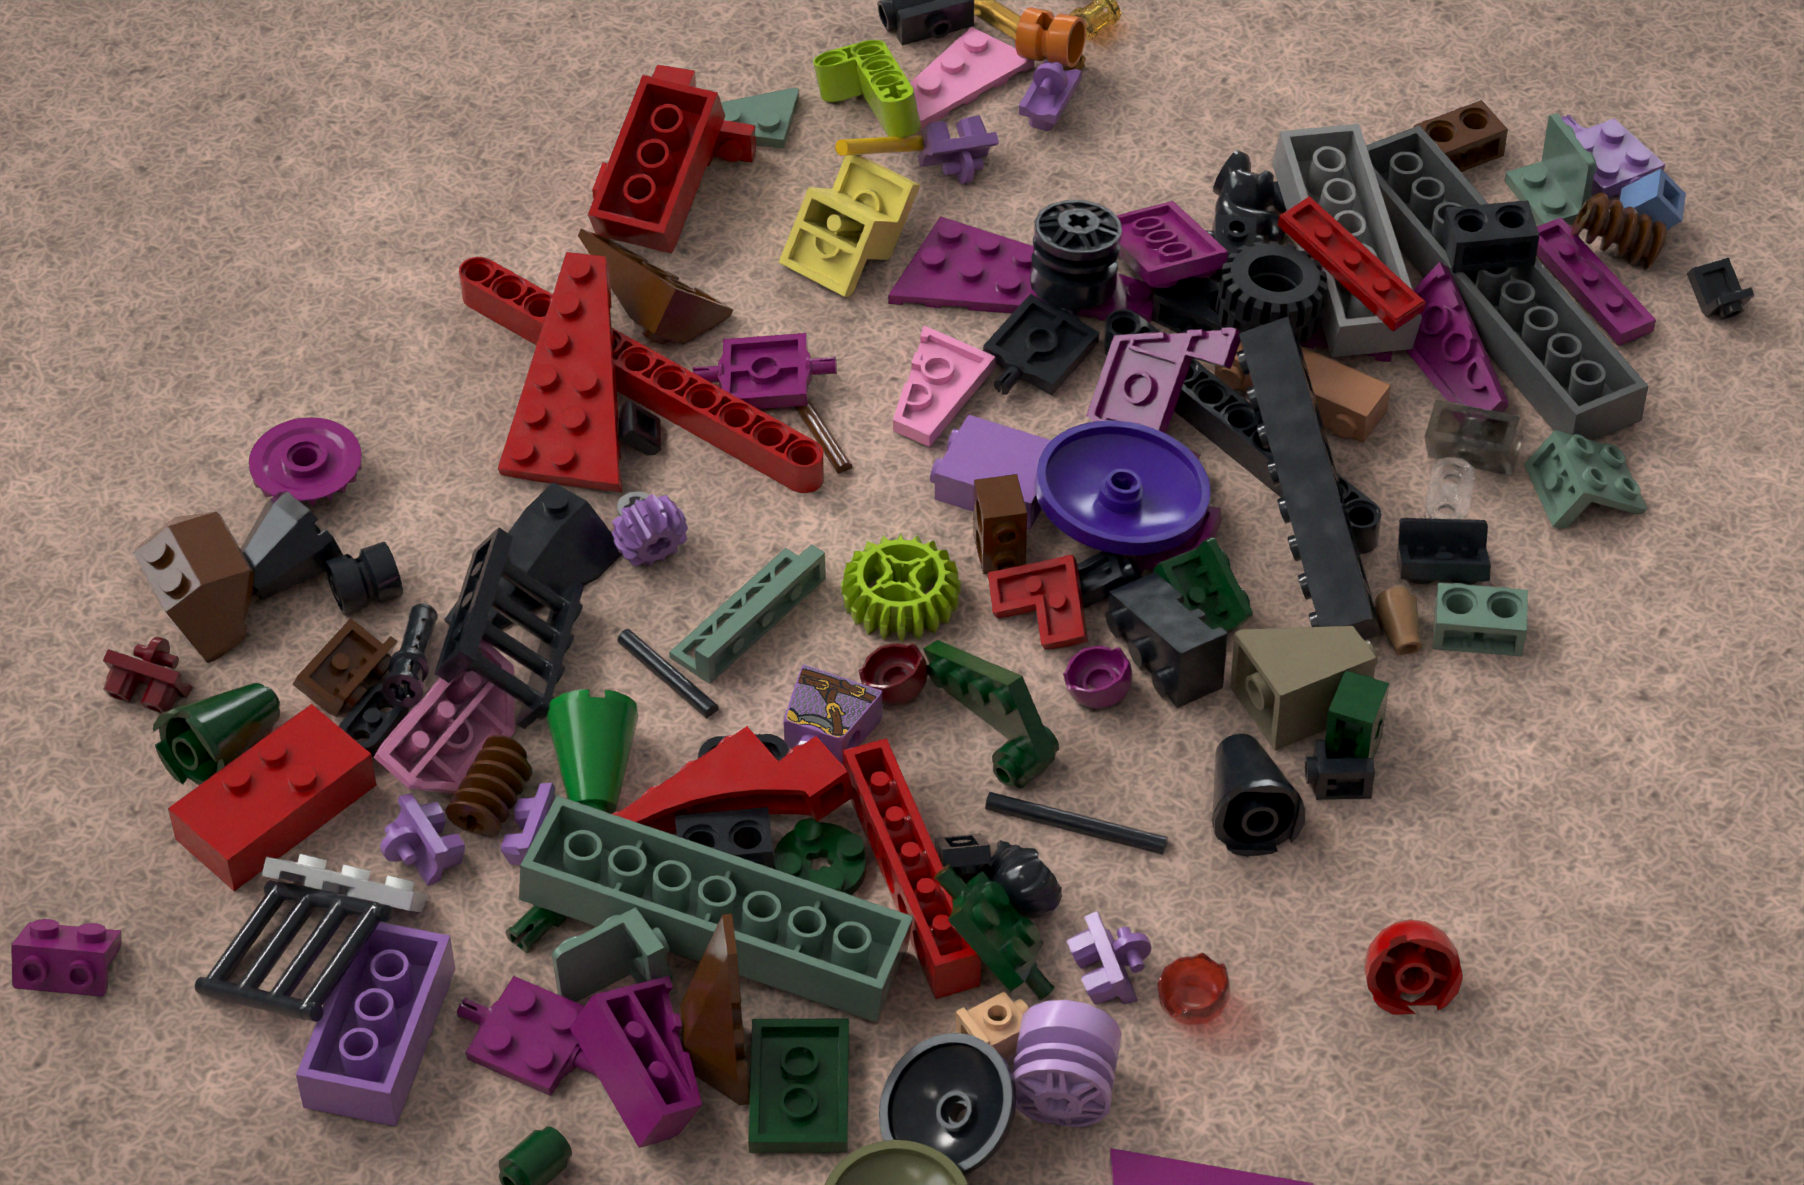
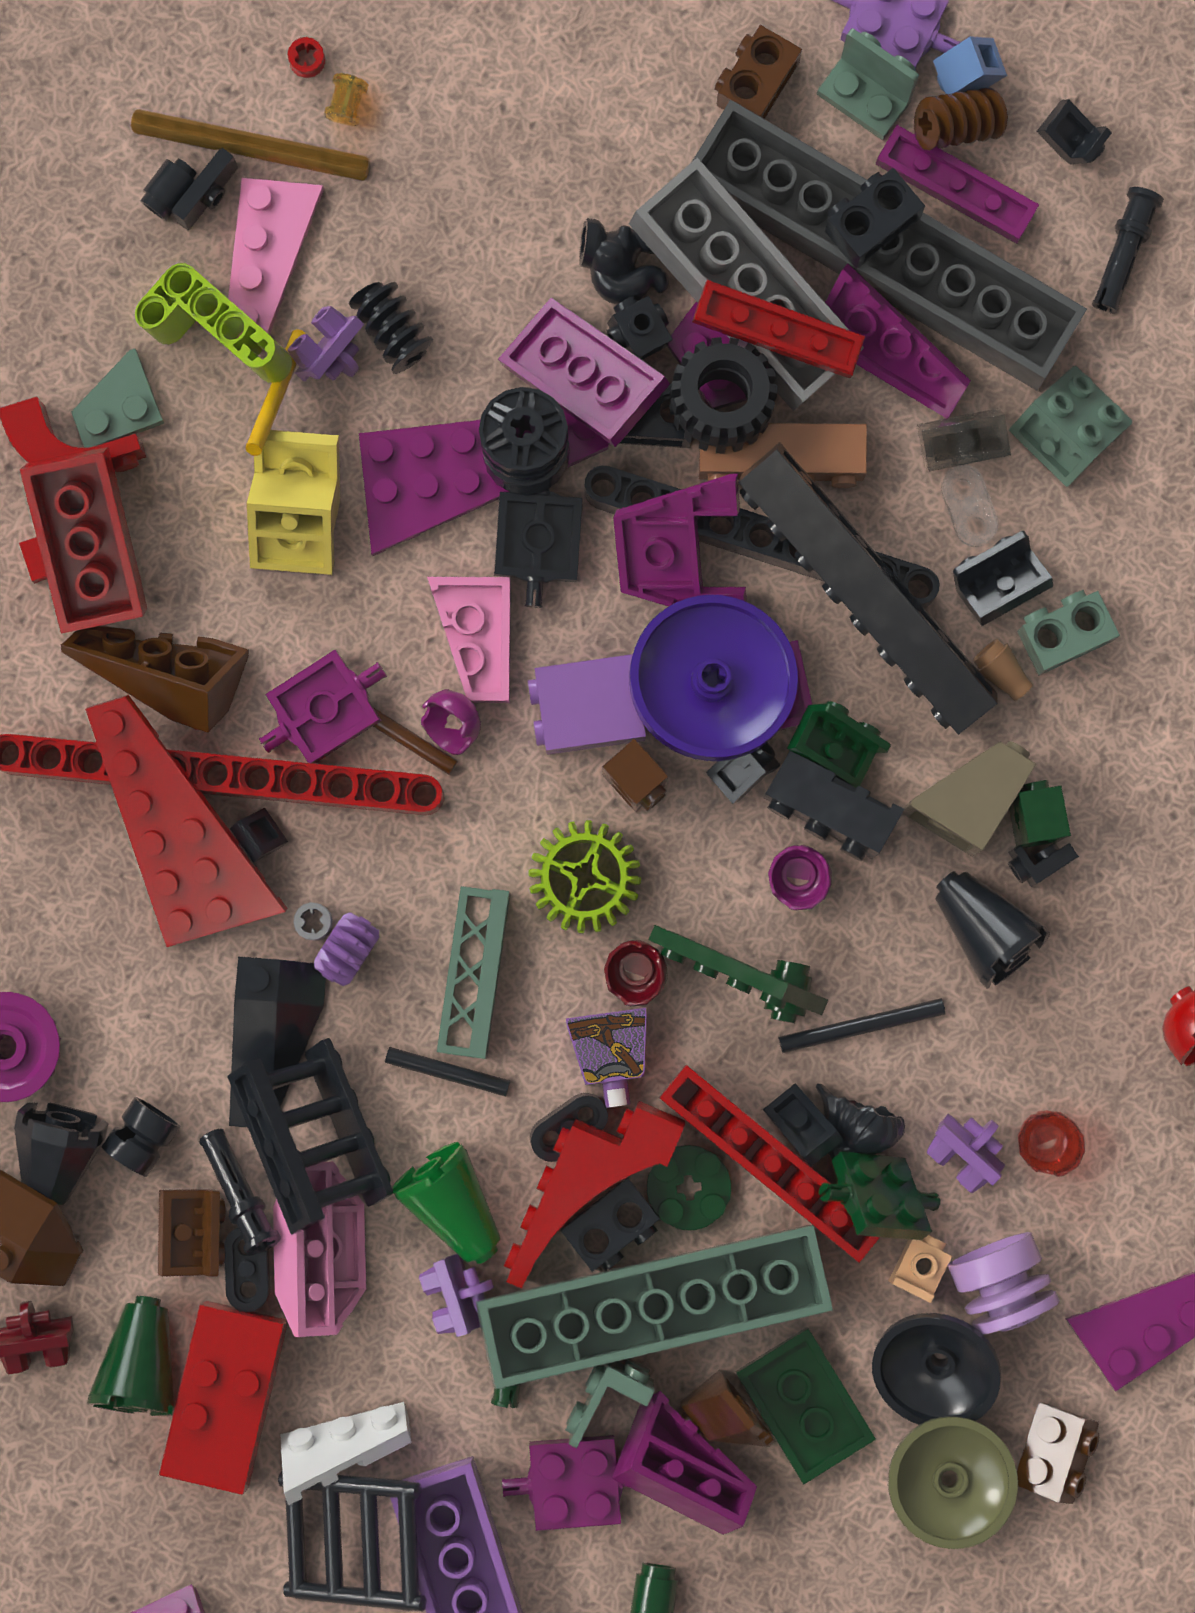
camera: 30 degrees left, 35 degrees up
(416, 840) = (351, 1350): medium lavender hips -> none
(490, 787) = (391, 1283): reddish brown piece -> none
(872, 416) = (439, 707): none -> magenta hair
(1022, 157) = (390, 325): none -> black piece
(1044, 587) = (709, 811): red plate -> none
(1049, 94) = (368, 229): medium lavender hips -> none
(1052, 37) = (349, 168): orange wheel -> none
(1731, 377) = (1131, 232): none -> black pin

